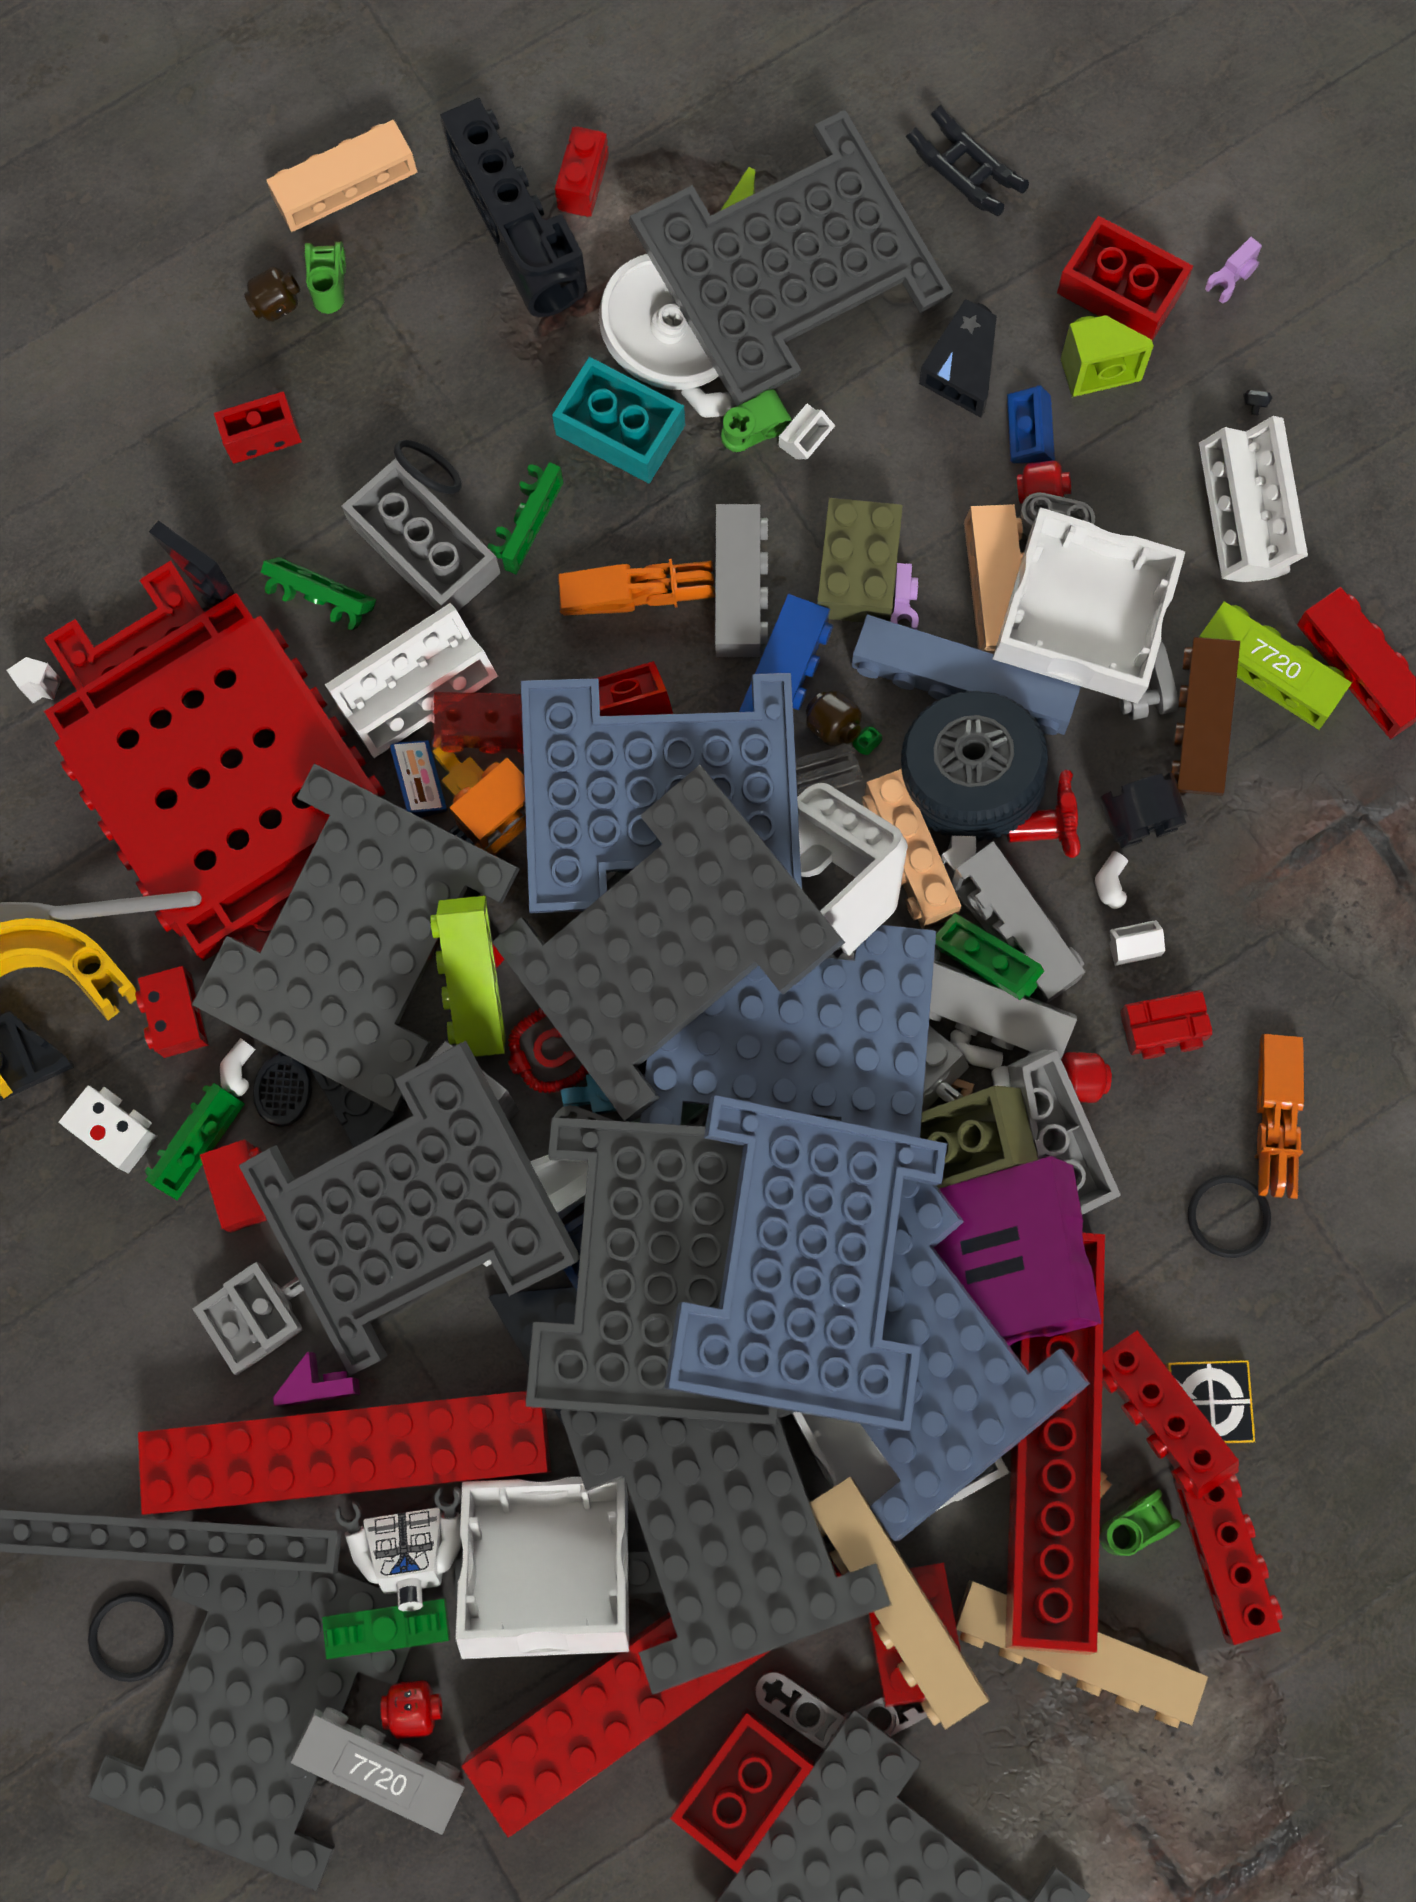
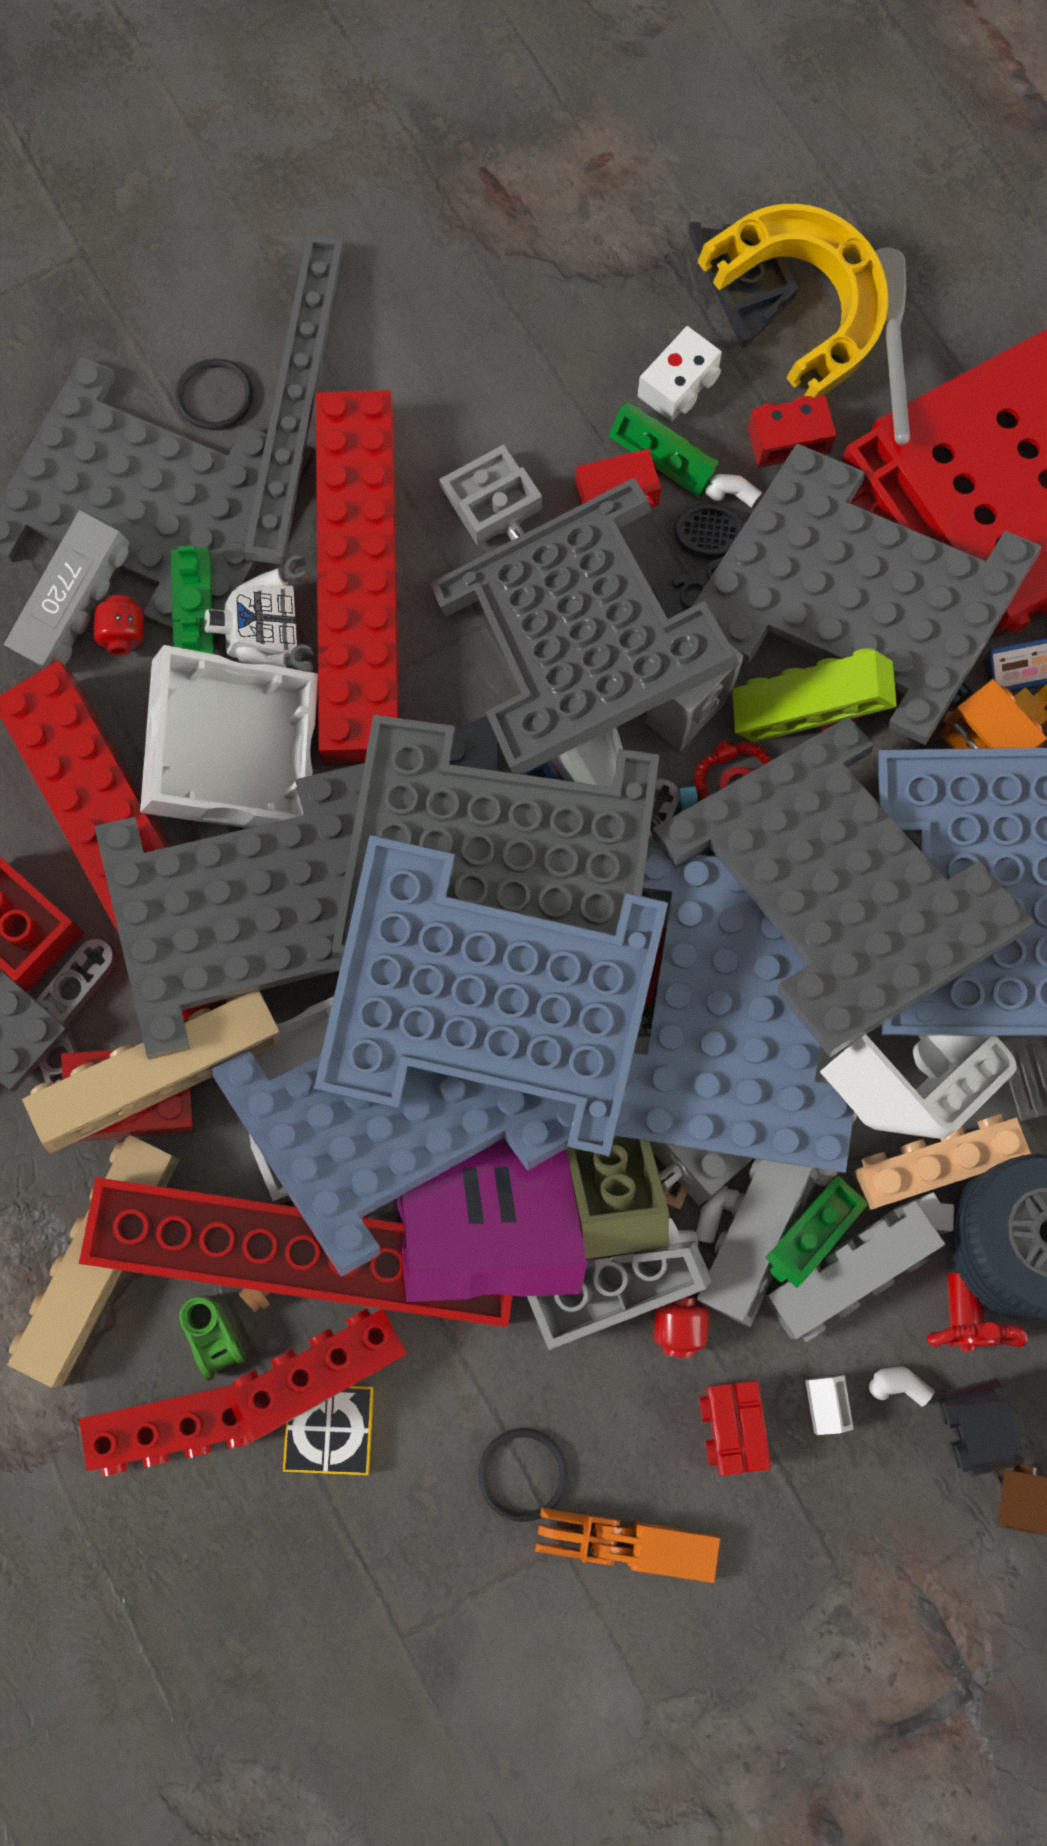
camera: 90 degrees right, 0 degrees up
(304, 1385) = (424, 544): magenta slope -> none

